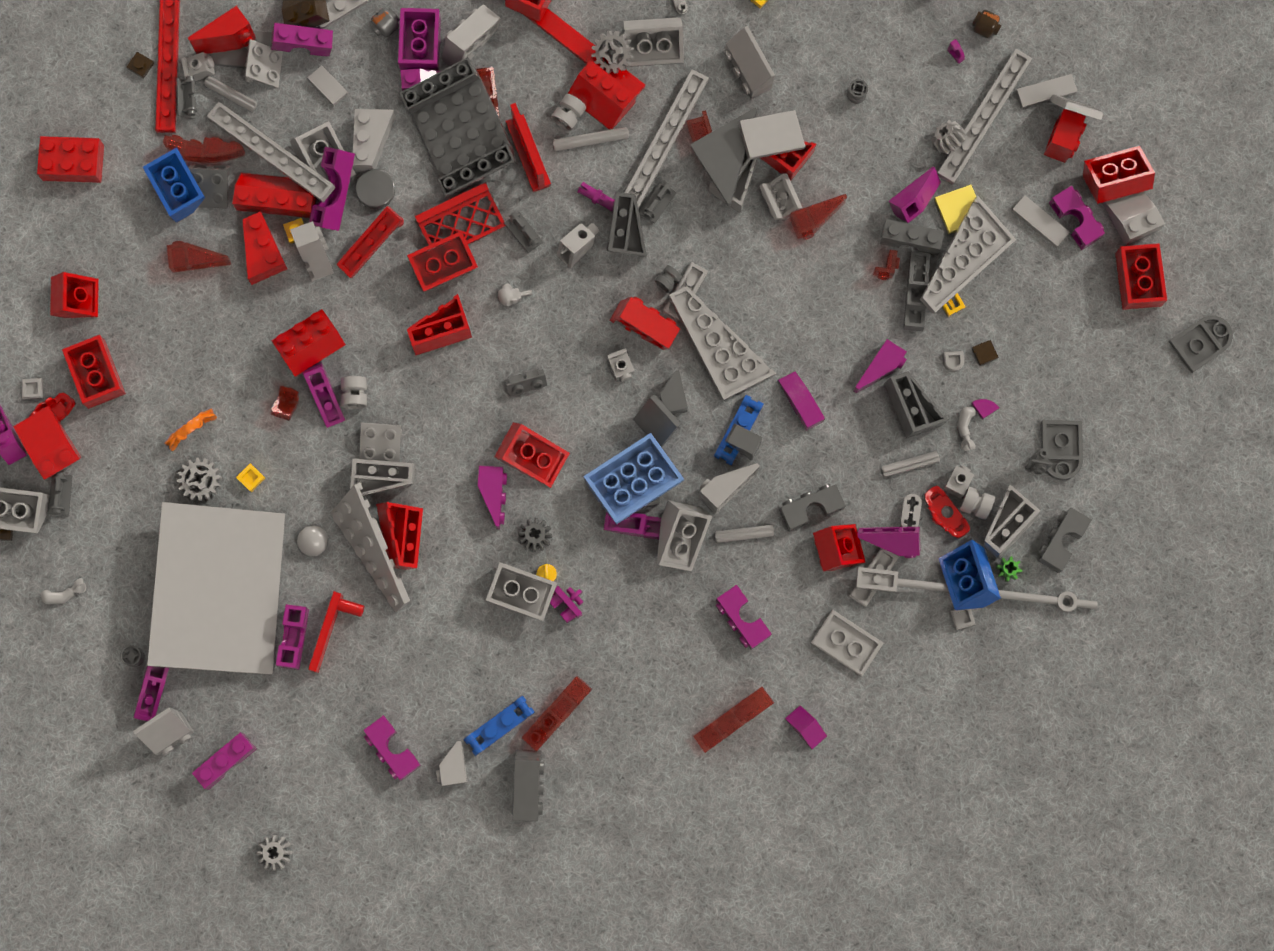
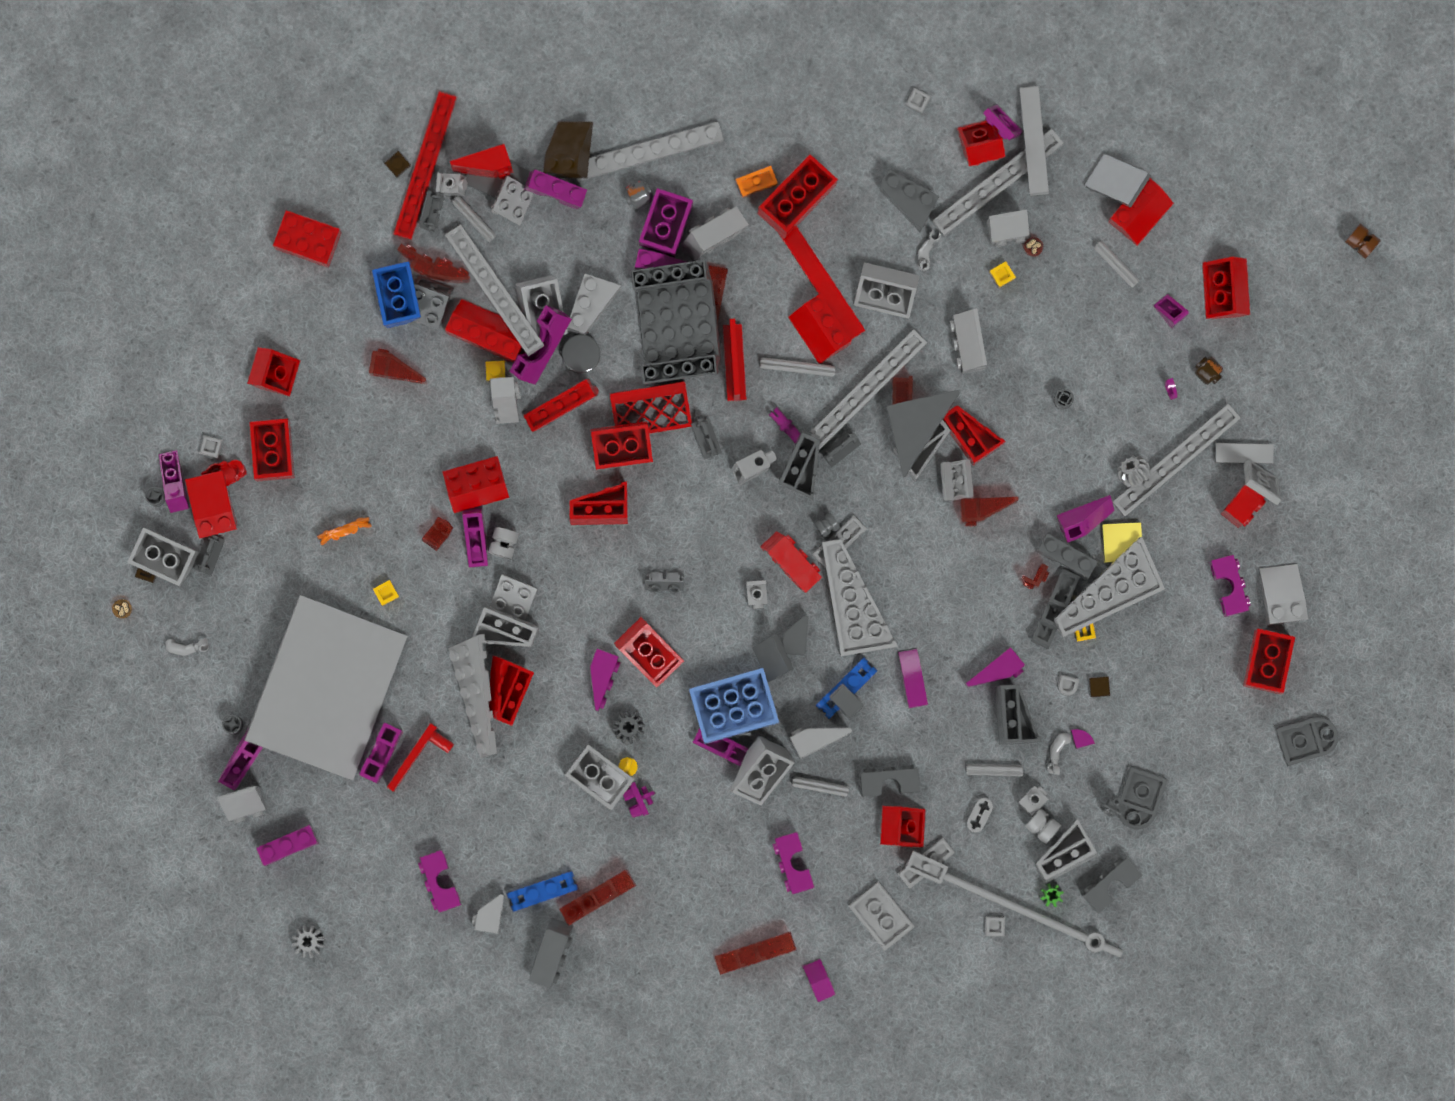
camera: 20 degrees right, 5 degrees up
(191, 483) = (340, 588): light grey gear -> none
(261, 250) = (458, 380): red wedge -> none
(312, 540) = (425, 668): light grey hair -> none
(327, 85) = (566, 238): light grey tile -> none
(510, 296) = (674, 495): light grey piece -> none
(568, 112) = (790, 333): light grey wheel -> none
(611, 44) = (836, 295): light grey gear -> none
(771, 135) = (965, 421): light grey tile -> none
(897, 540) = (956, 836): magenta slope -> none
(956, 524) = (1016, 839): red piece -> none
(969, 577) = (1011, 892): blue slope -> none
(1040, 221) = (1194, 578): light grey tile -> none
(1118, 174) = (1281, 558): red brick -> none

